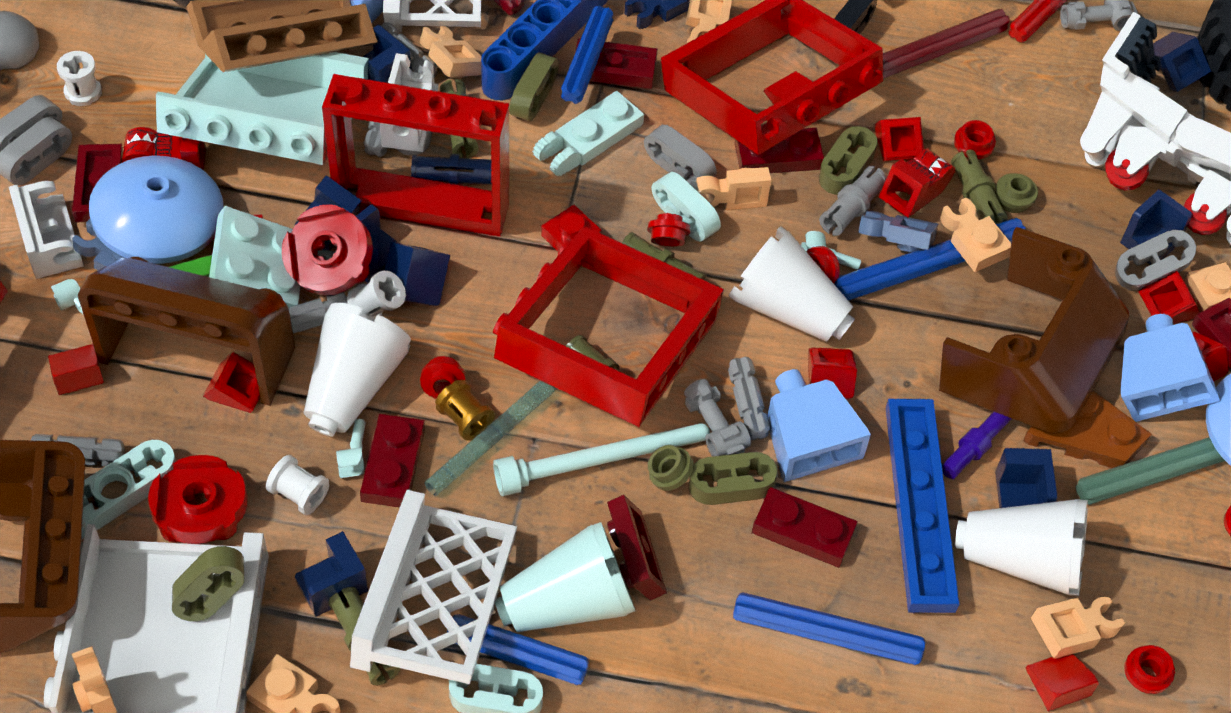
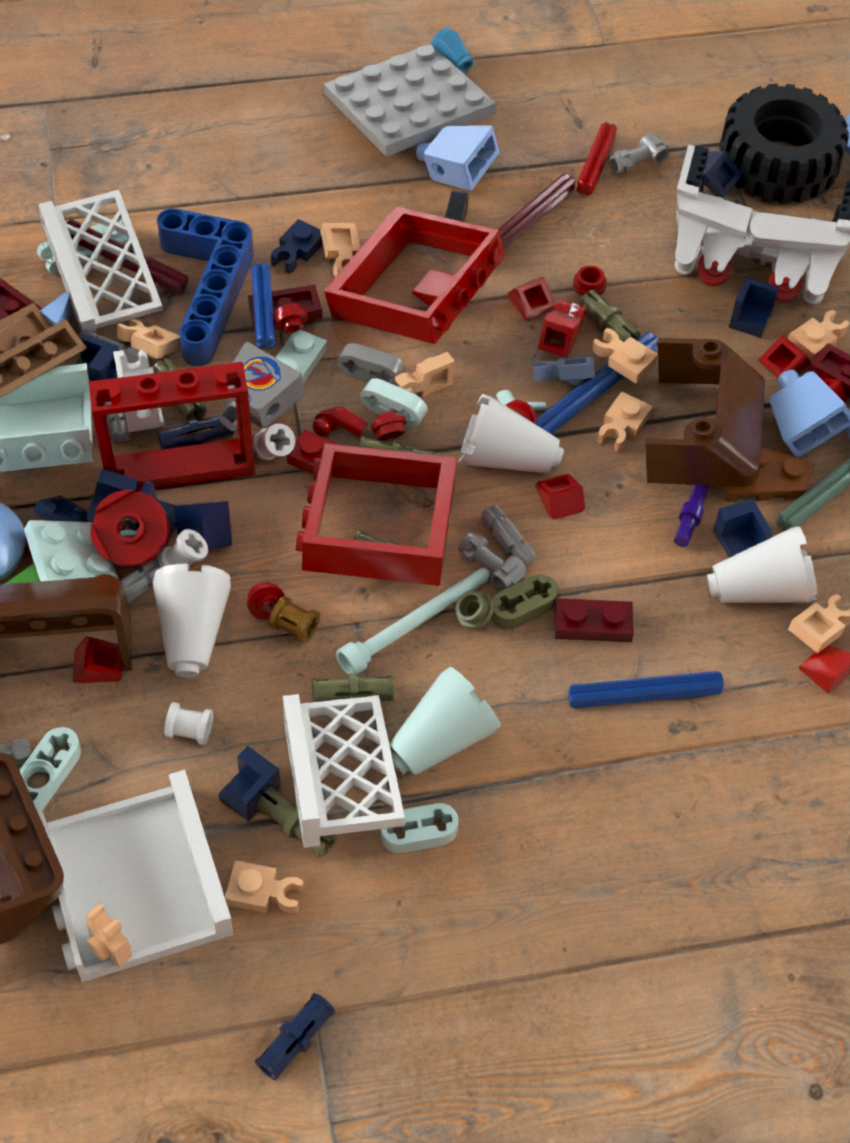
camera: 20 degrees left, 0 degrees up
(199, 579) = (159, 824): olive beam -> none
(203, 522) = (118, 783): red plate -> none
(271, 206) = (60, 509): none -> dark blue tile
(351, 460) = (220, 691): light aqua hand -> none
(392, 460) = (254, 679): dark red plate -> none
(488, 437) = (321, 634): clear light blue bar -> none
(493, 508) = (352, 688): none -> olive pin
(531, 653) = (434, 788): blue axle -> none
(534, 86) = (229, 339): olive beam -> none
(542, 202) = (280, 434): none -> white bush
(543, 141) = (270, 388): none -> light grey torso
(610, 76) = (290, 318): none -> red plate
(615, 204) = (338, 418): none -> red arm
(631, 534) = (483, 685): dark red plate -> none
(794, 154) = (461, 335): dark red plate -> none
(813, 427) = (568, 541): light blue torso -> none
(840, 156) = (495, 326): olive beam -> none
(853, 201) = (519, 357): light grey pin -> none
(921, 507) = (673, 573): blue plate -> none
(945, 307) = (624, 418): none -> light nougat plate
(1016, 192) = (638, 312): olive plate -> none
(1151, 251) = (757, 326): light grey beam -> none

